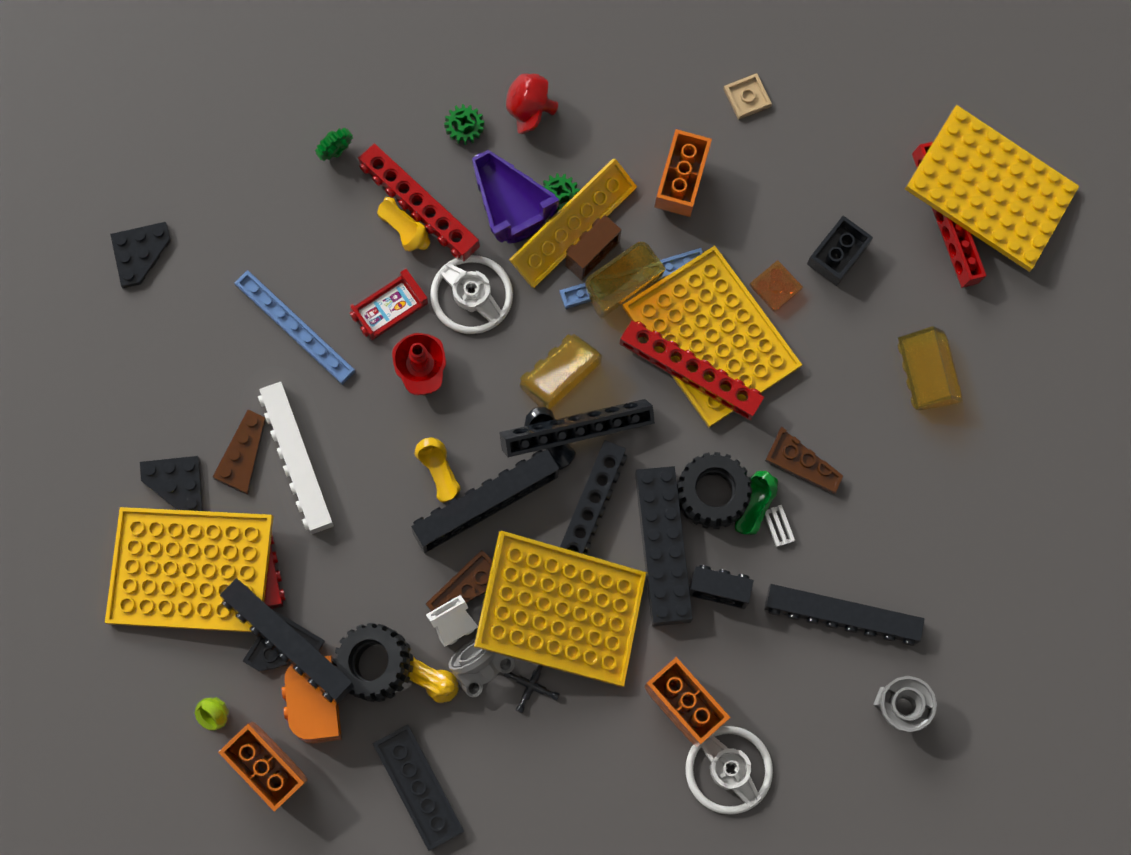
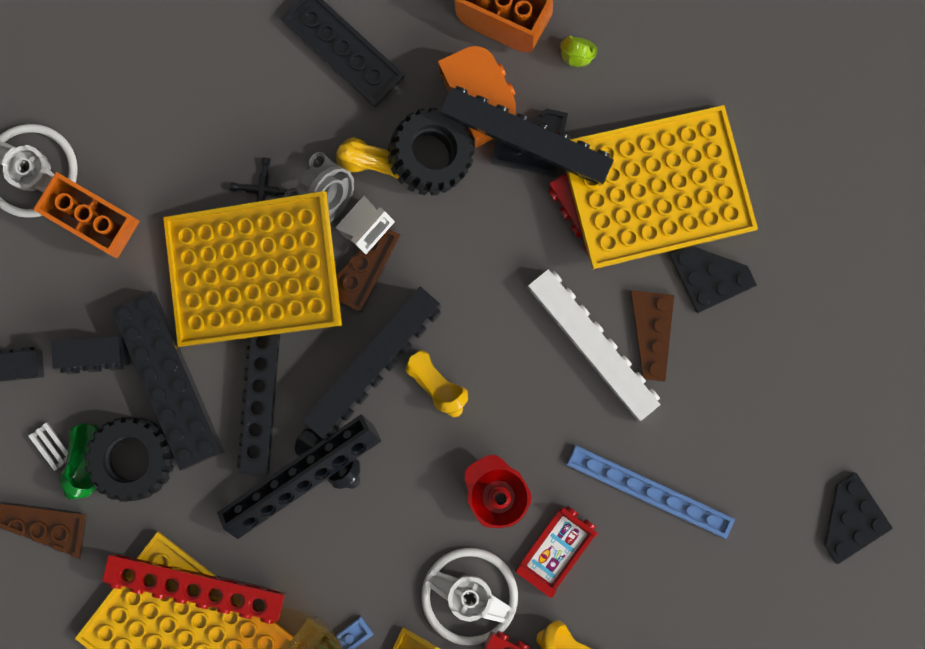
camera: 165 degrees right, 10 degrees up
(560, 371) = (340, 538): clear yellow windscreen -> none

